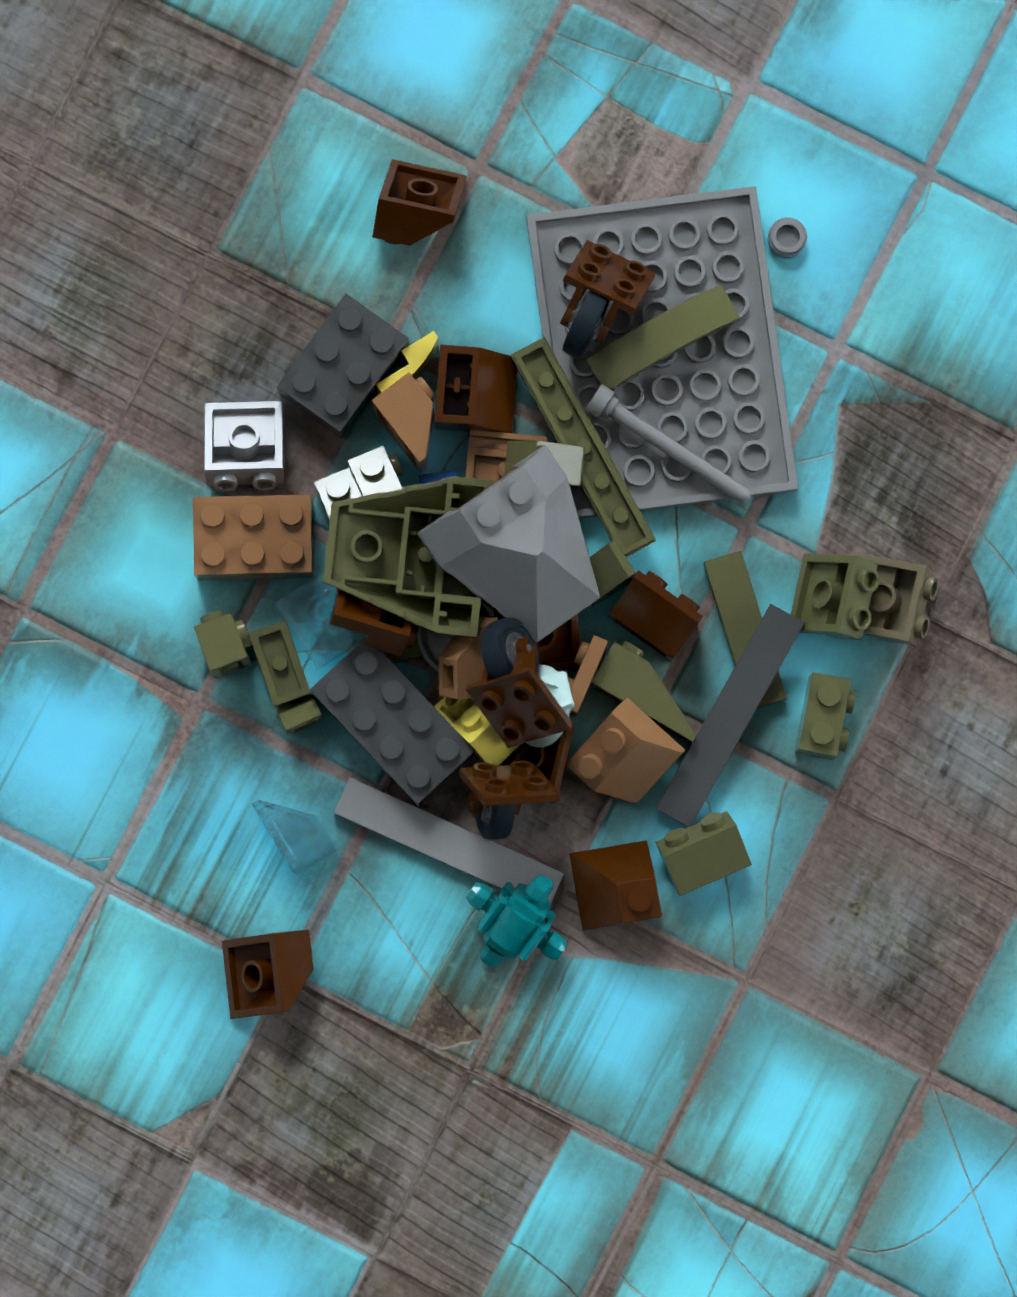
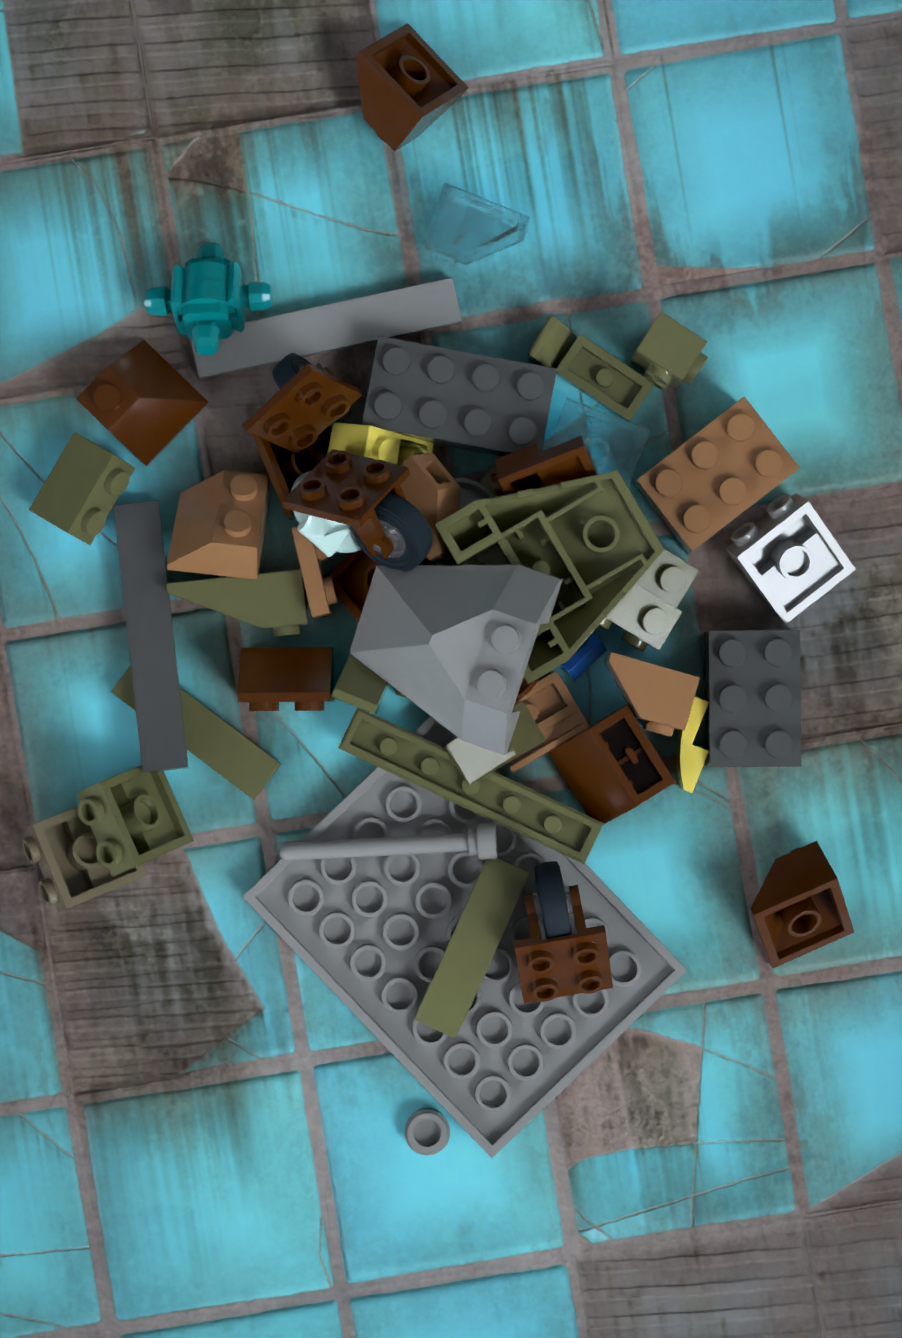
camera: 155 degrees right, 5 degrees up
(823, 716) = (63, 699): olive brick -> none

